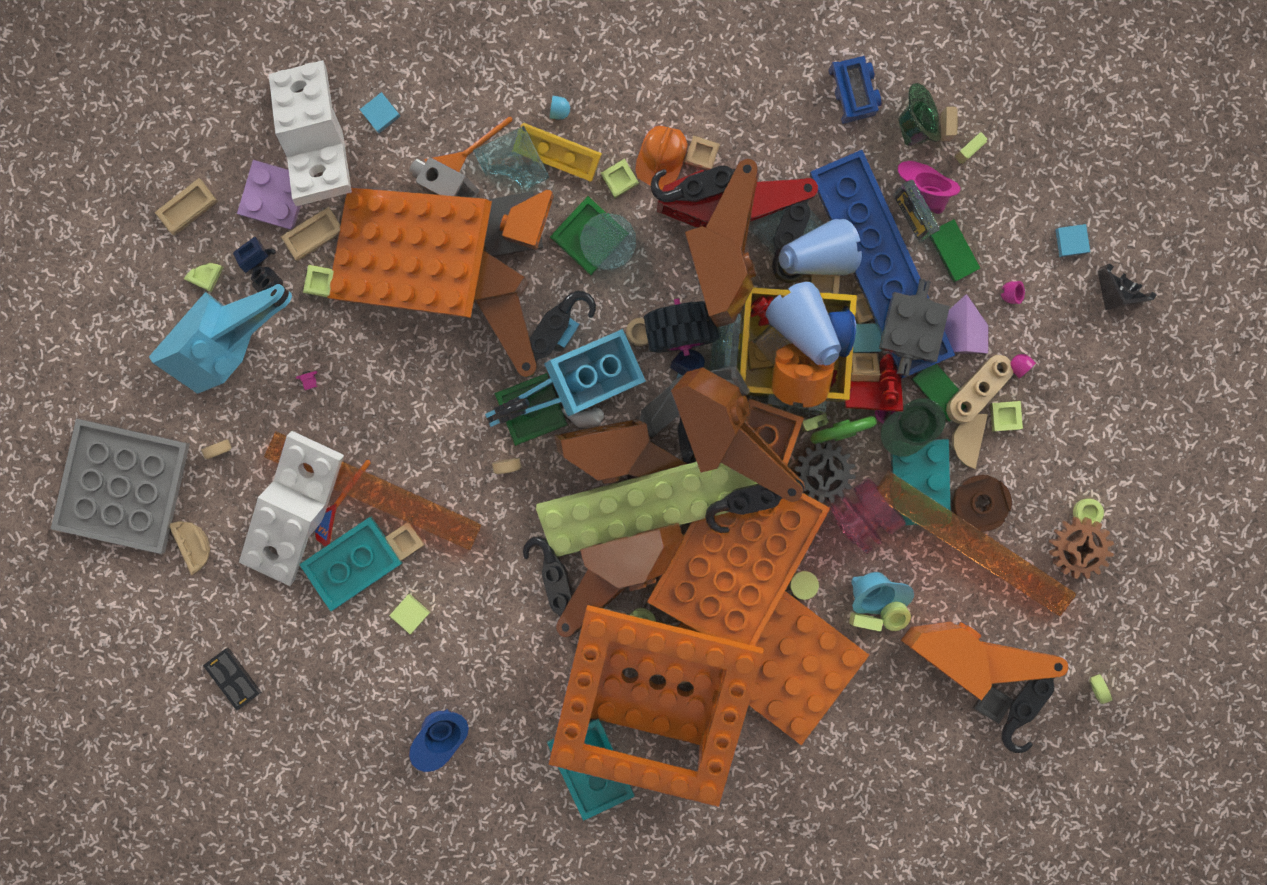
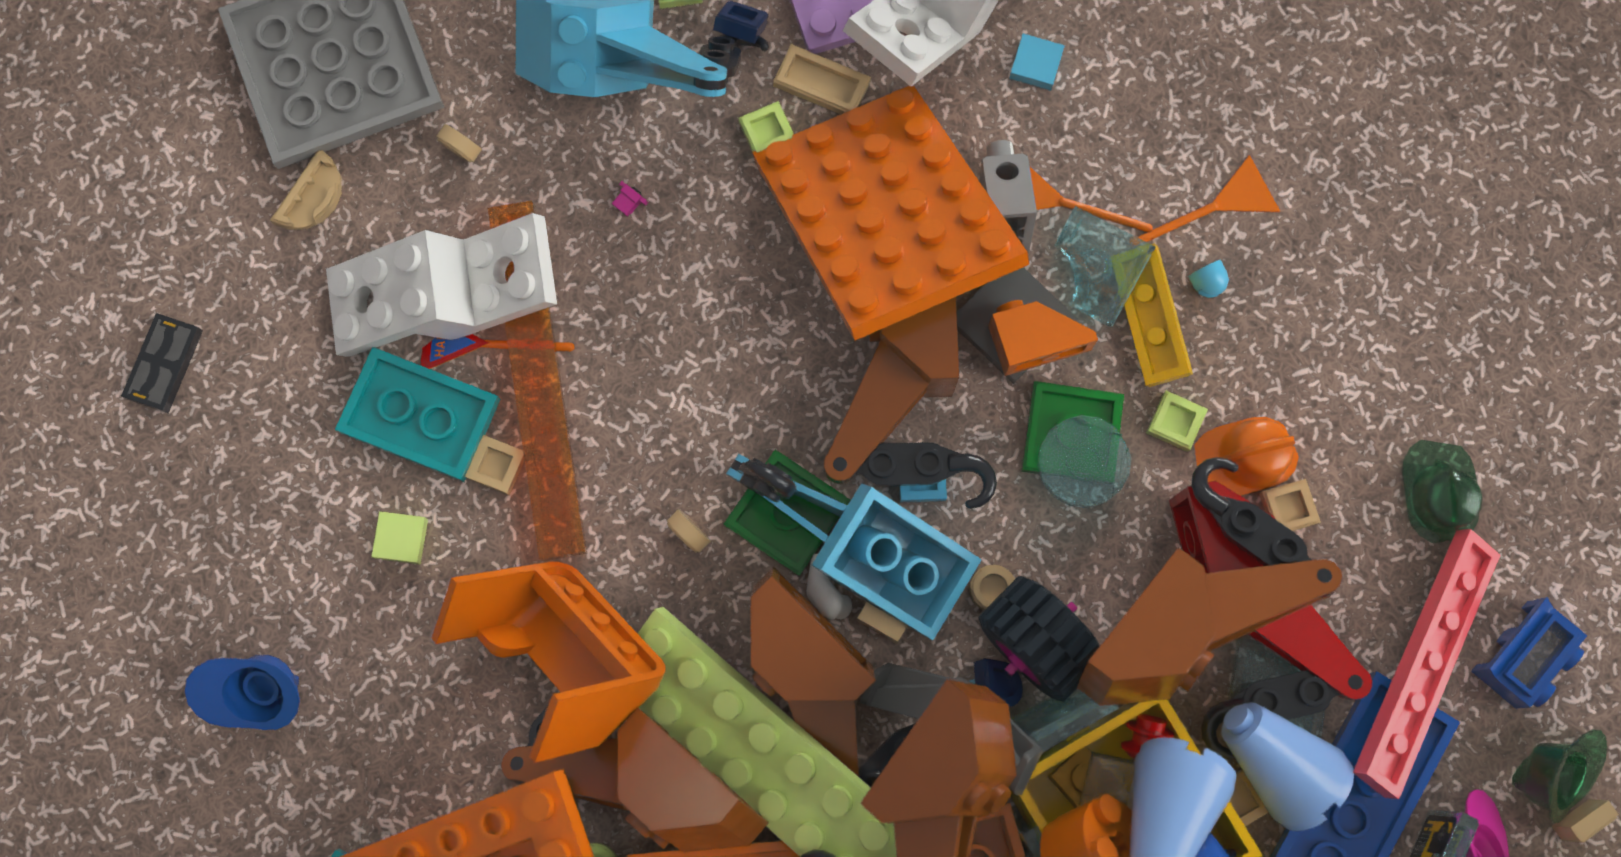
camera: 50 degrees right, 10 degrees down
(521, 559) = (570, 635): none -> orange windscreen
(525, 56) = (1243, 192): none -> orange piece
(619, 400) = (881, 623): none -> tan tile
(745, 71) = (1440, 490): none -> clear green piece
(823, 144) = (1426, 664): none -> coral plate

